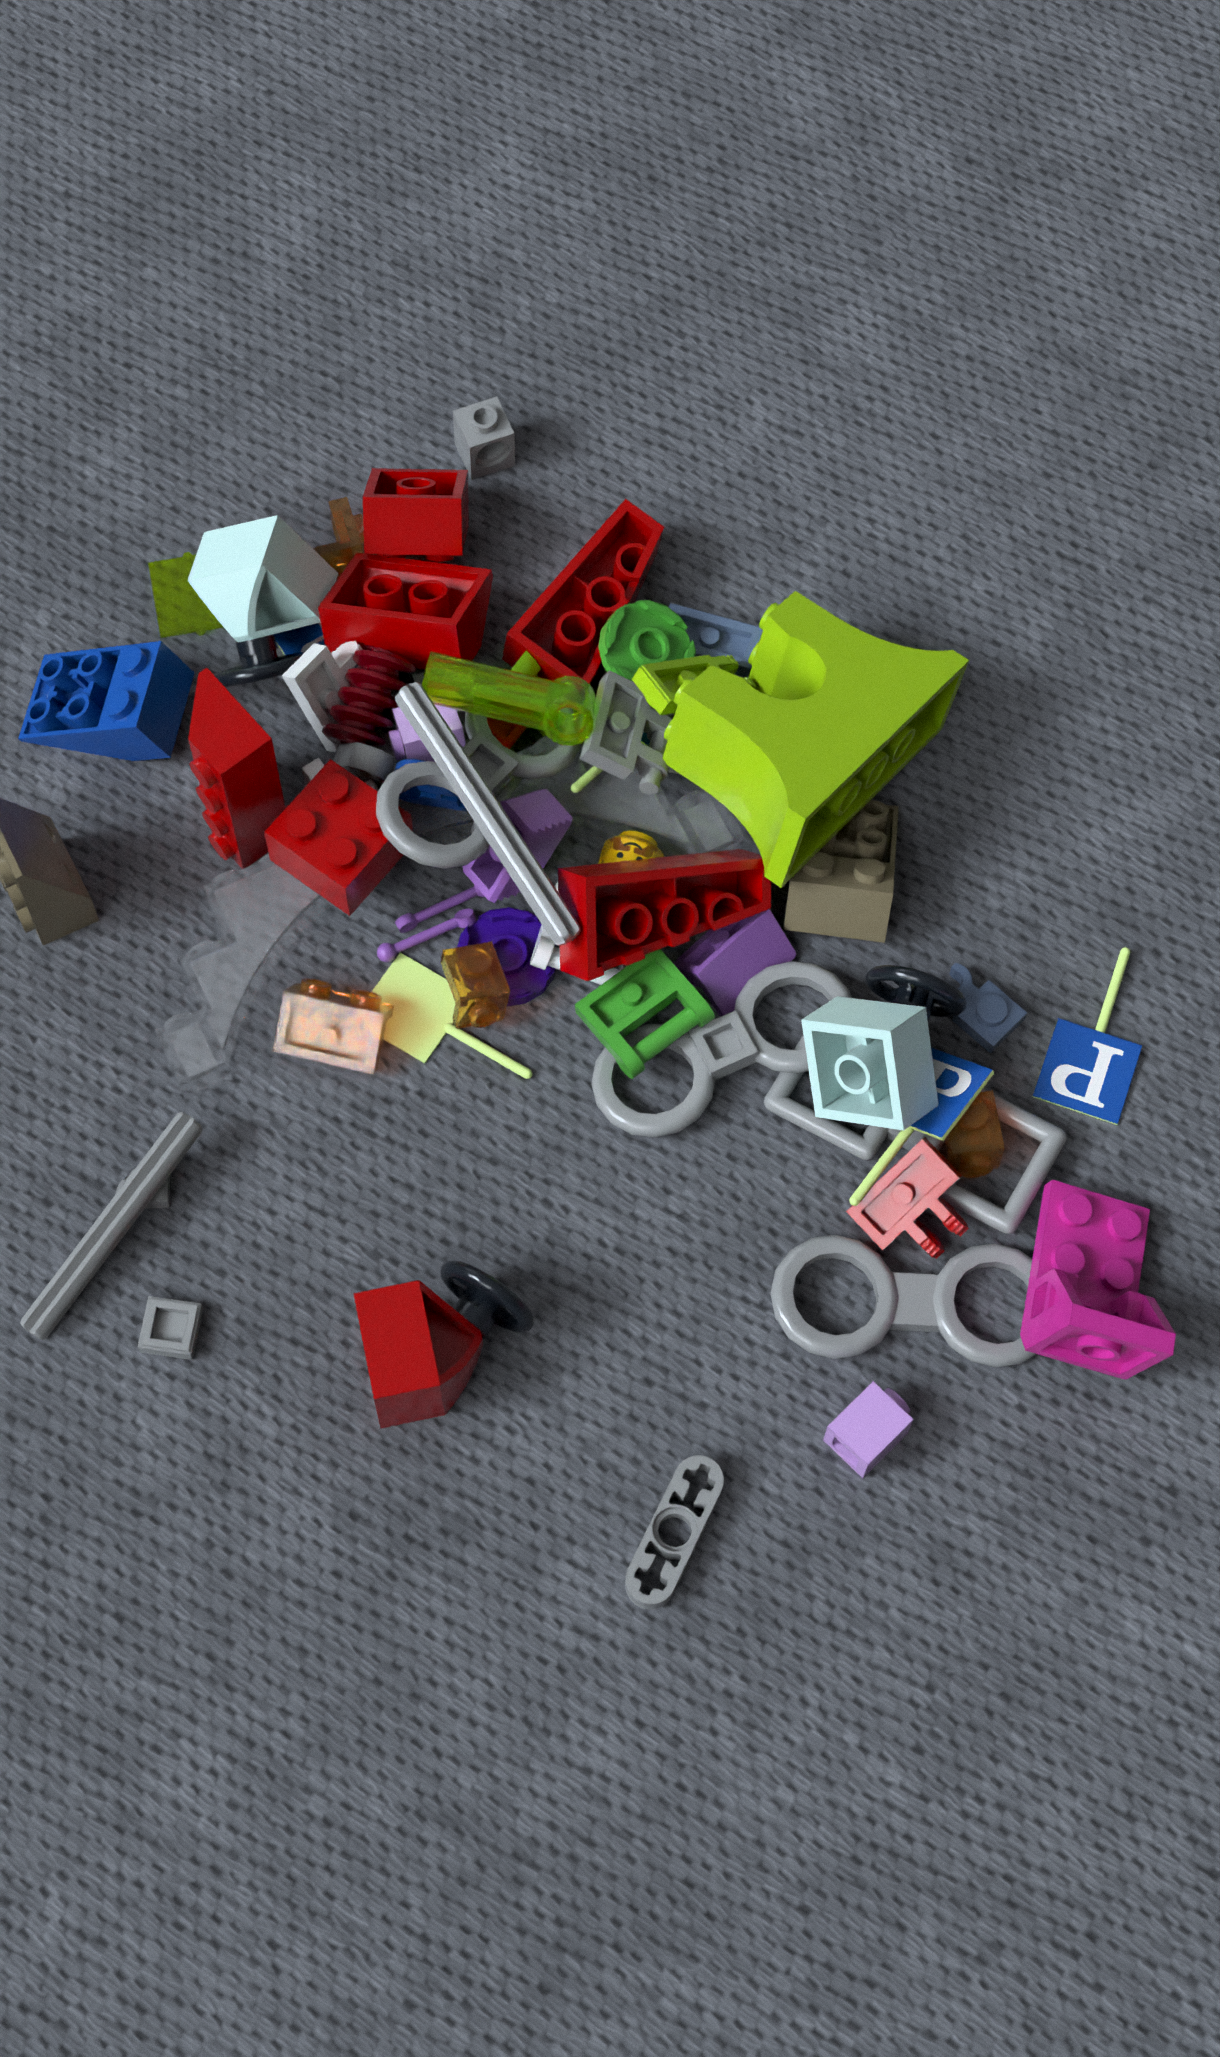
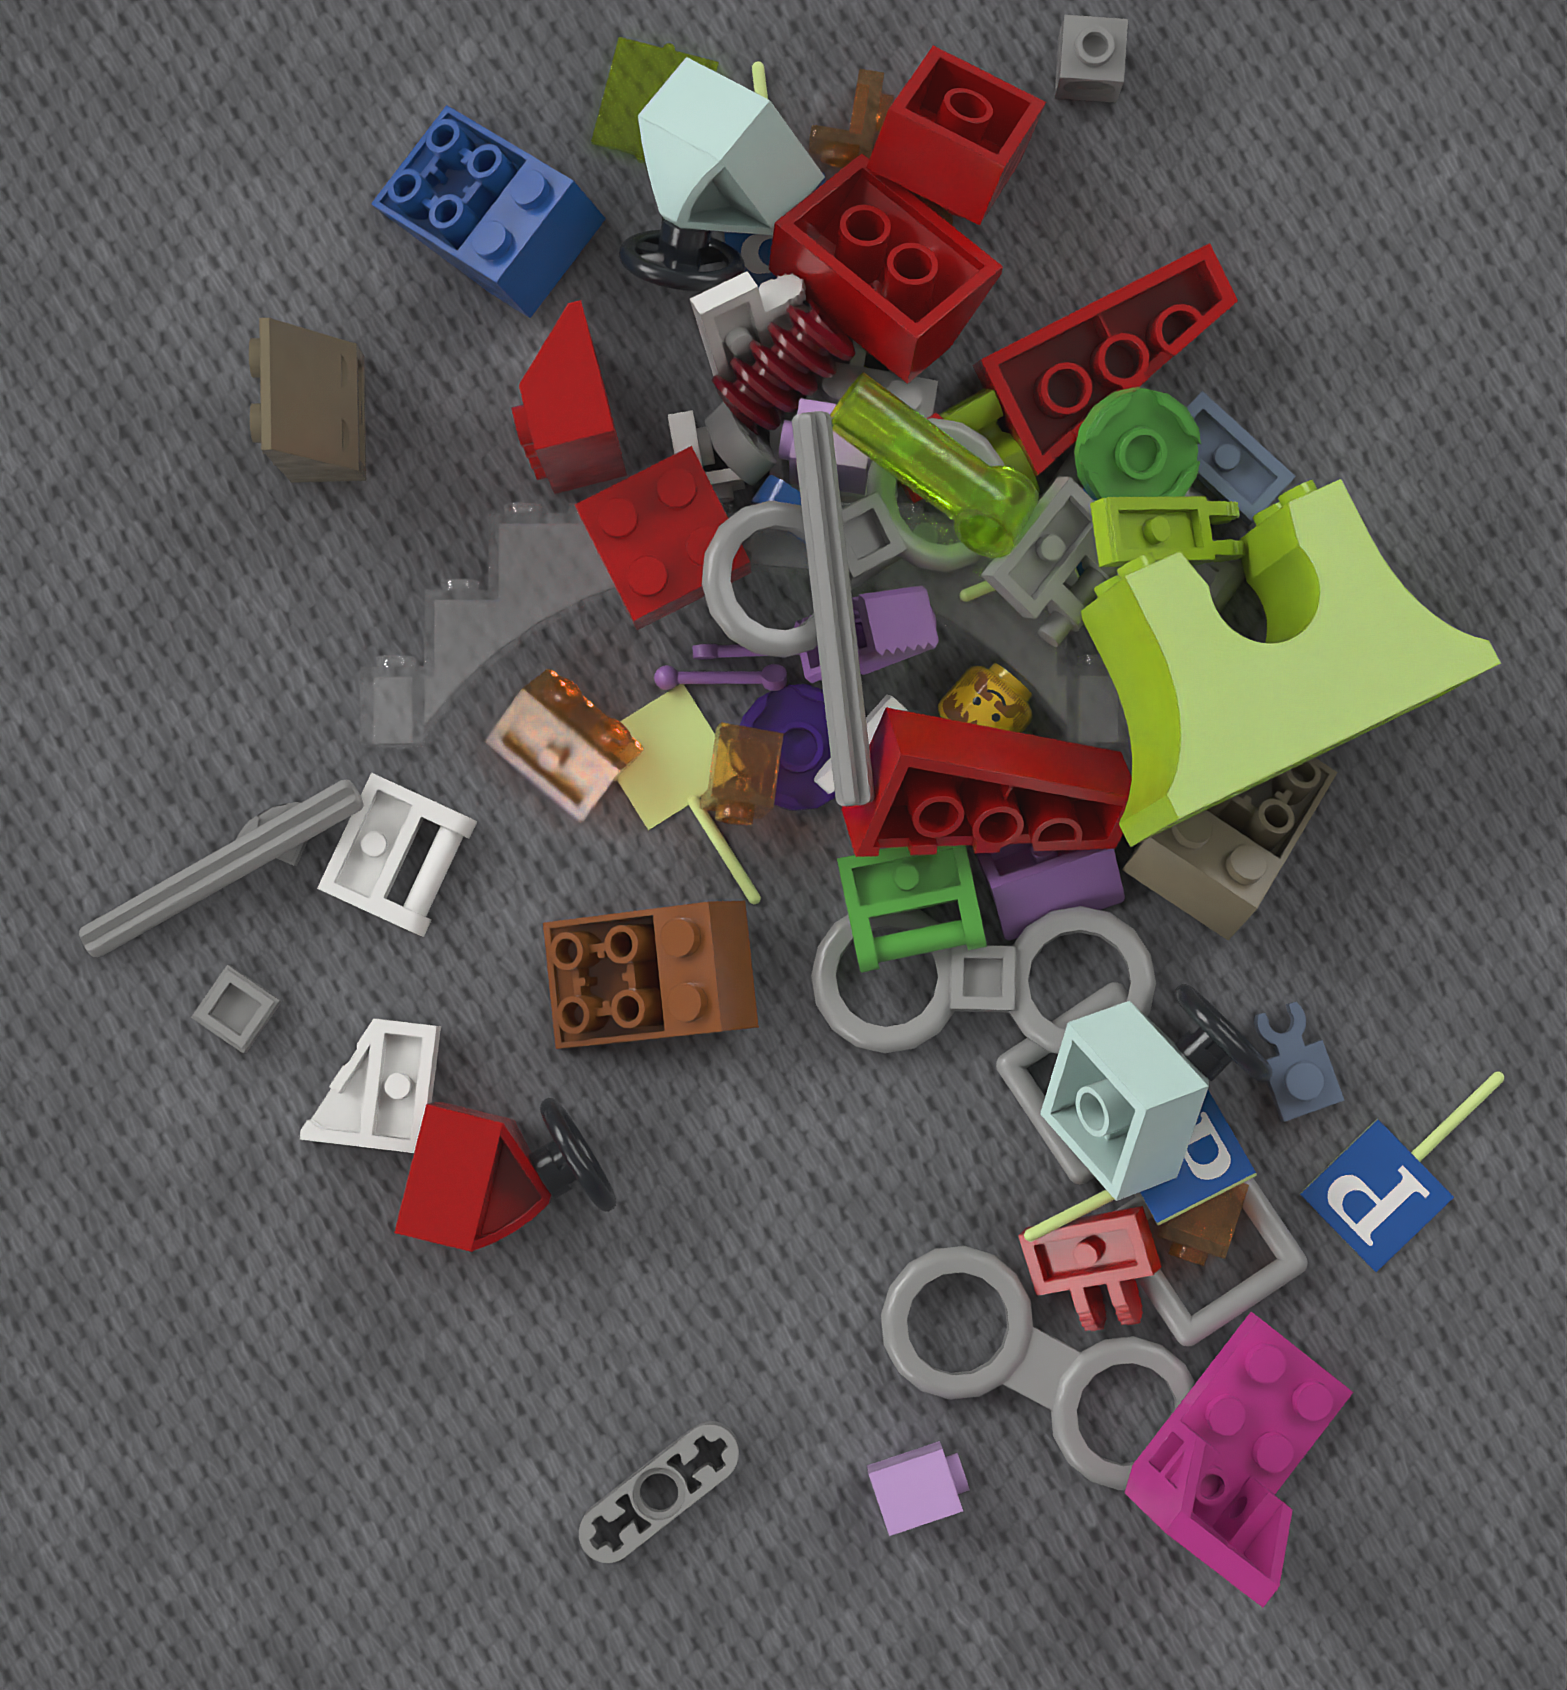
camera: 30 degrees right, 20 degrees up
(225, 1158) = (377, 846): none -> white plate
(312, 1333) = (381, 1089): none -> white wing
(476, 1154) = (650, 974): none -> dark orange slope

